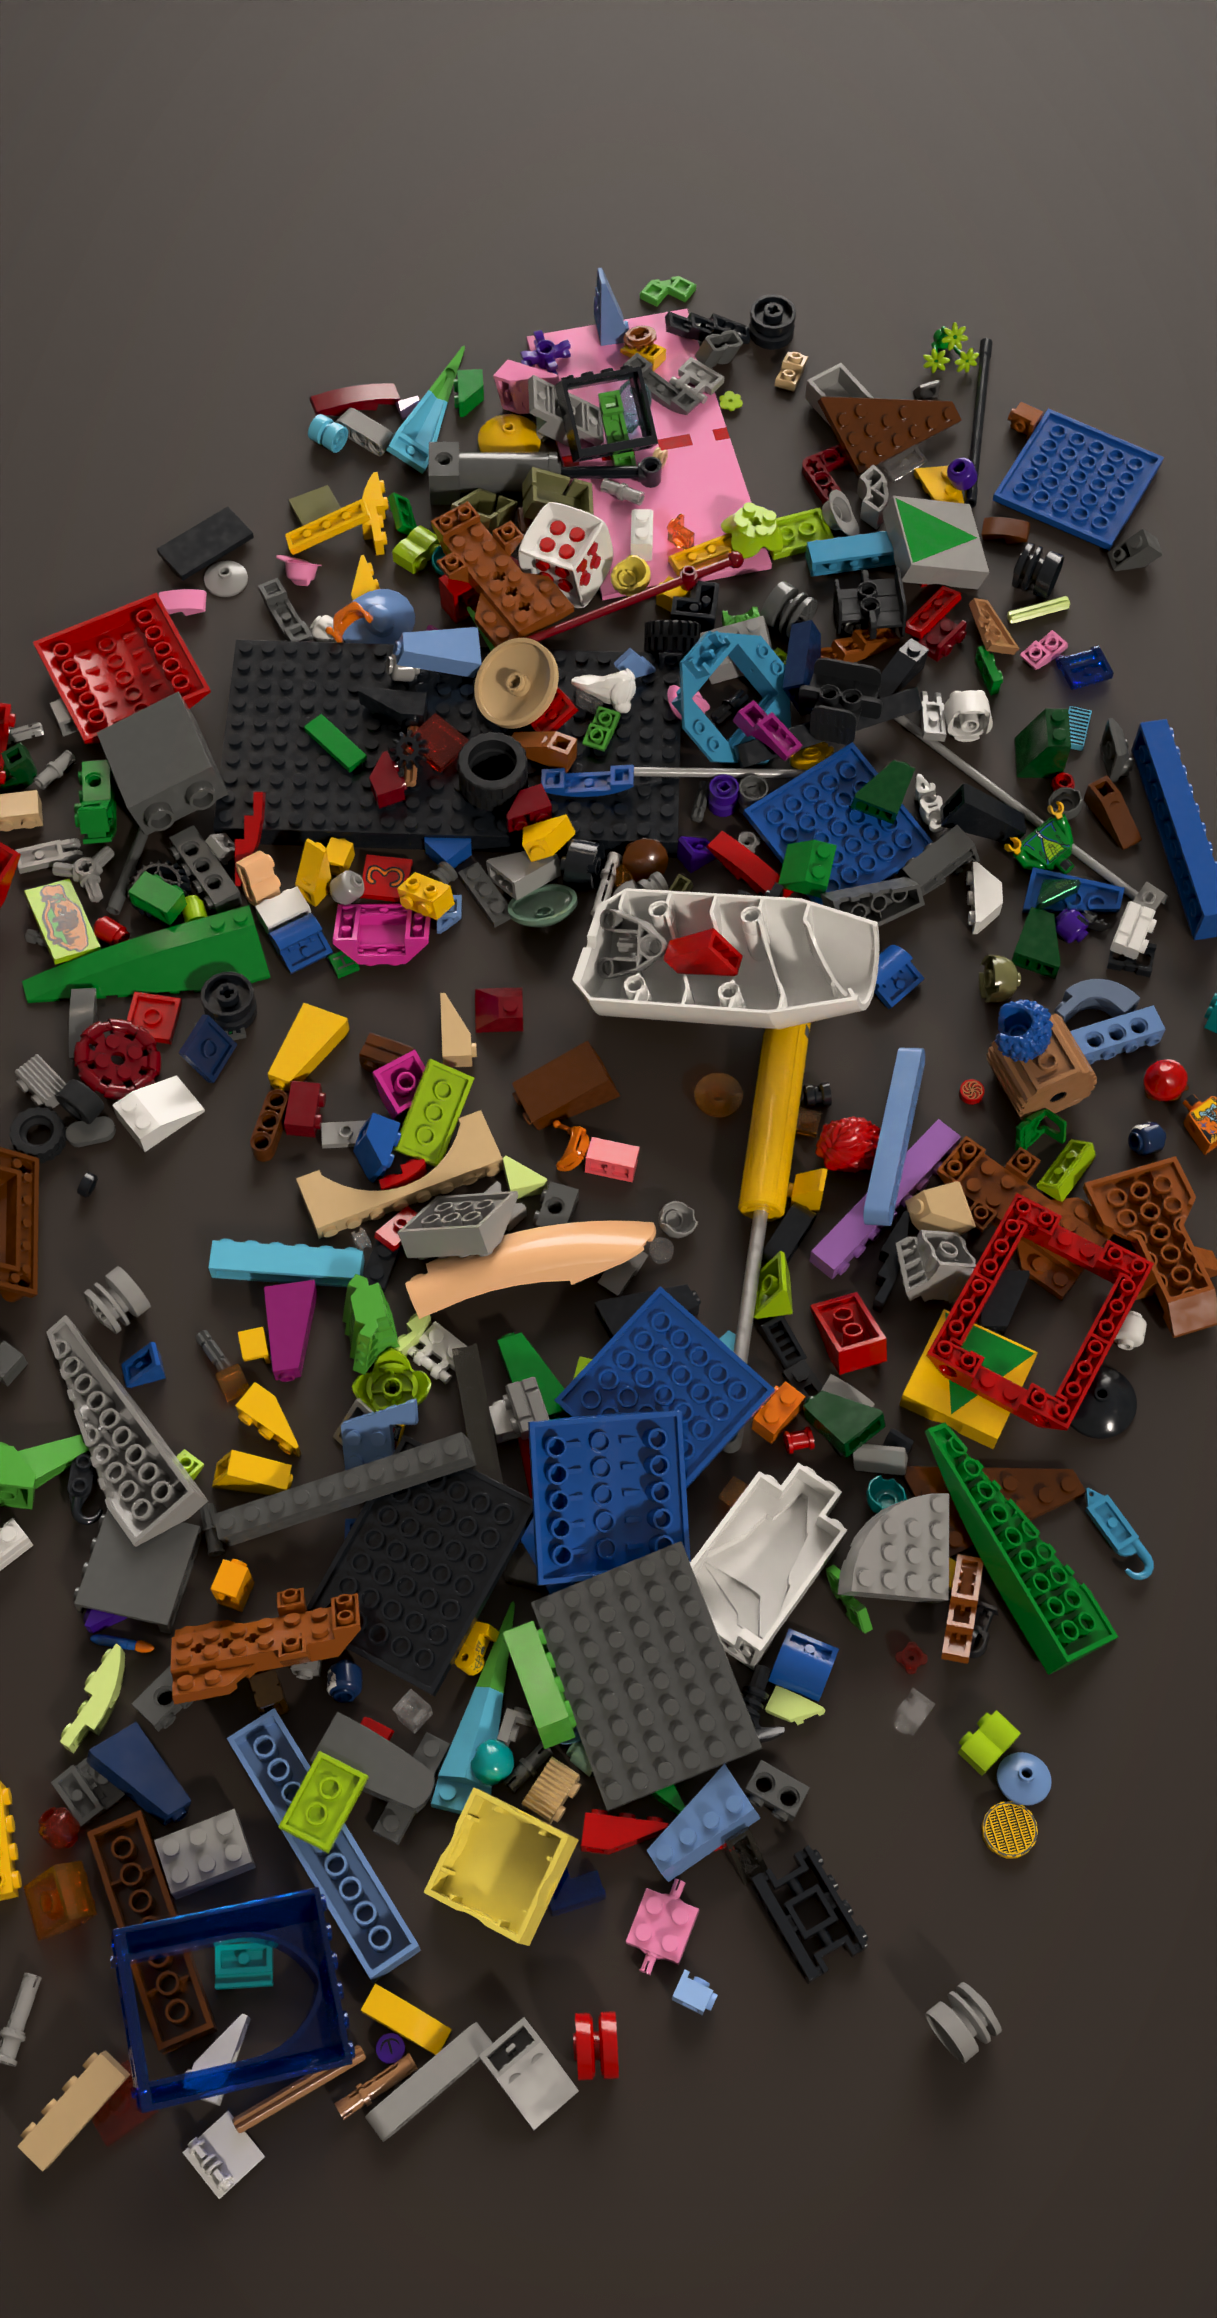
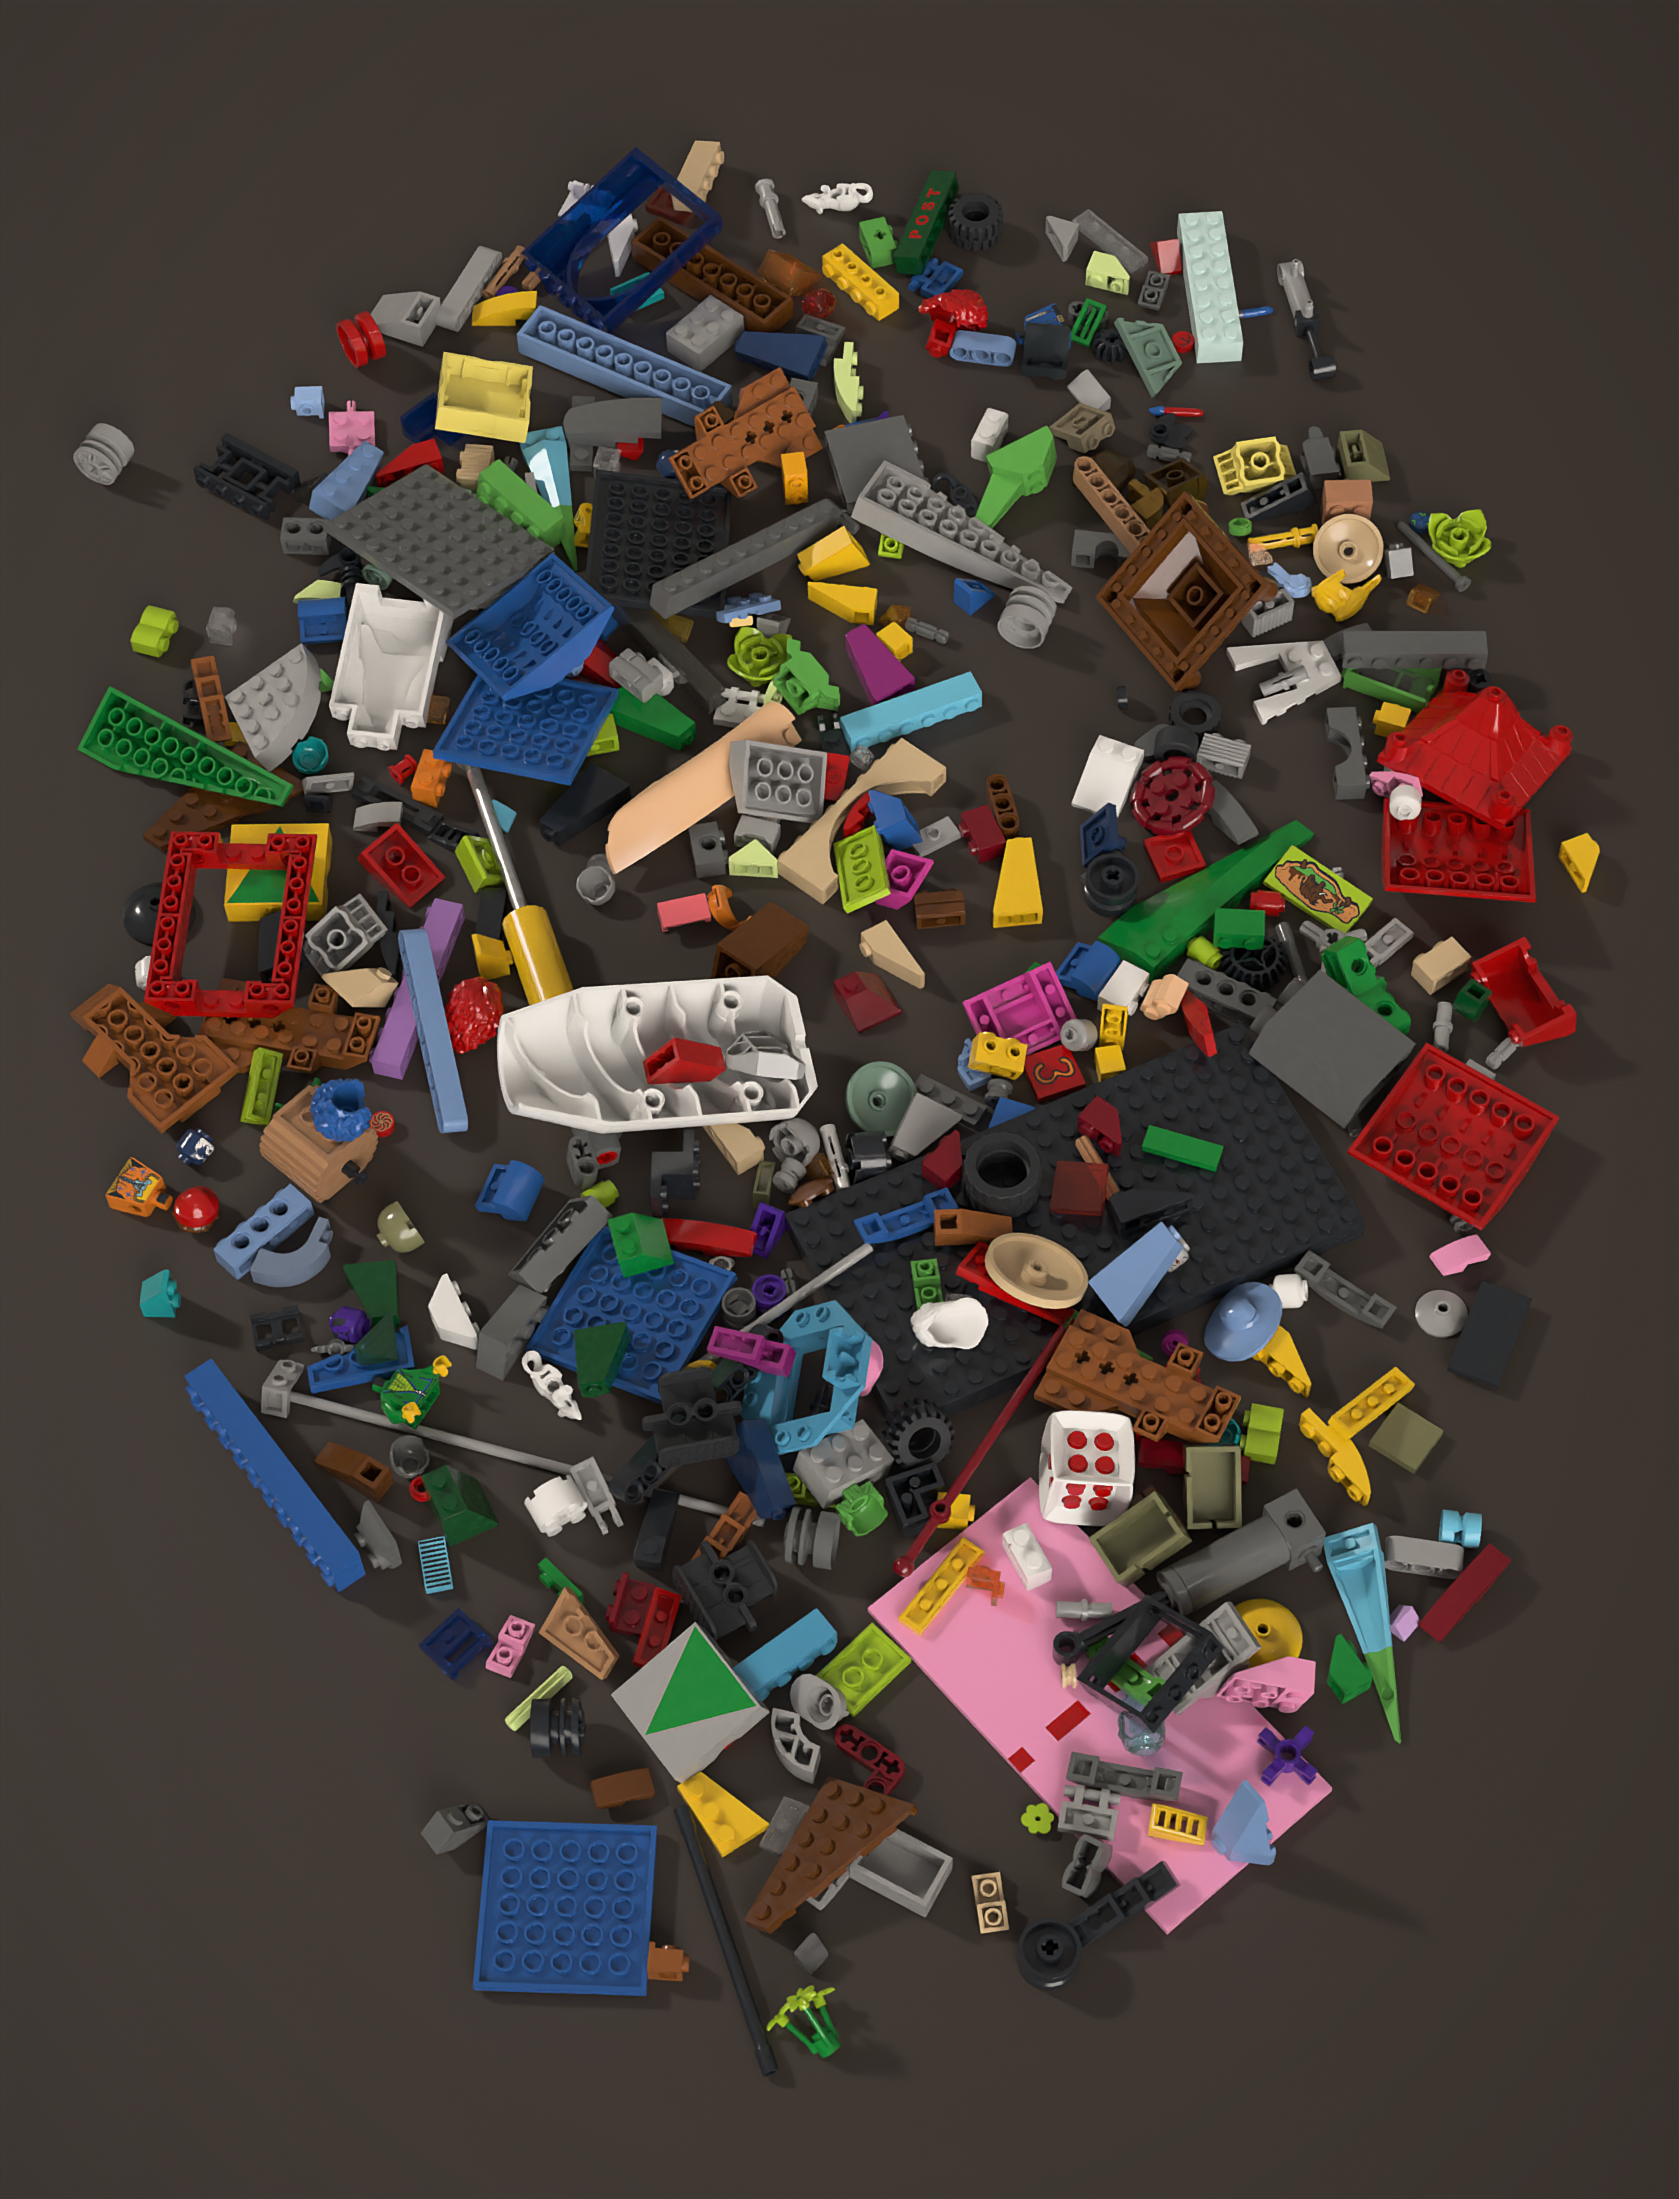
camera: 155 degrees right, 5 degrees down
(221, 847) = (1221, 1013): light grey bracket -> none
(299, 570) = (1373, 1350): bright pink piece -> none
(323, 1802) = (634, 376): lime tile -> none
(345, 618) = (1256, 1294): orange helmet -> none
(402, 513) = (1307, 1469): green plate -> none
(413, 742) = (1094, 1148): black gear -> none
(492, 1762) = (528, 458): teal hair -> none
(547, 837) = (913, 1143): yellow slope -> none
(631, 575) = (1006, 1494): light yellow hair -> none
(634, 663) = (928, 1370): medium blue slope -> none
(640, 337) = (1199, 1824): dark orange gear -> none
(677, 287) = (1205, 1967): bright green tile -> none
(753, 529) = (910, 1643): lime brick -> none
(843, 1421) = (371, 781): dark green slope -> none
(911, 1650) = (237, 659): clear red plate -> none
(962, 474) = (703, 1817): dark purple head -> none
(982, 815) = (485, 1379): black slope -> none
(1009, 1830) = (116, 589): tile -> none
(1019, 1788) = (116, 633): medium blue dish -> none
(1117, 1531) = (104, 817): dark azure plate -> none
(1133, 929) = (282, 1335): white brick -> none

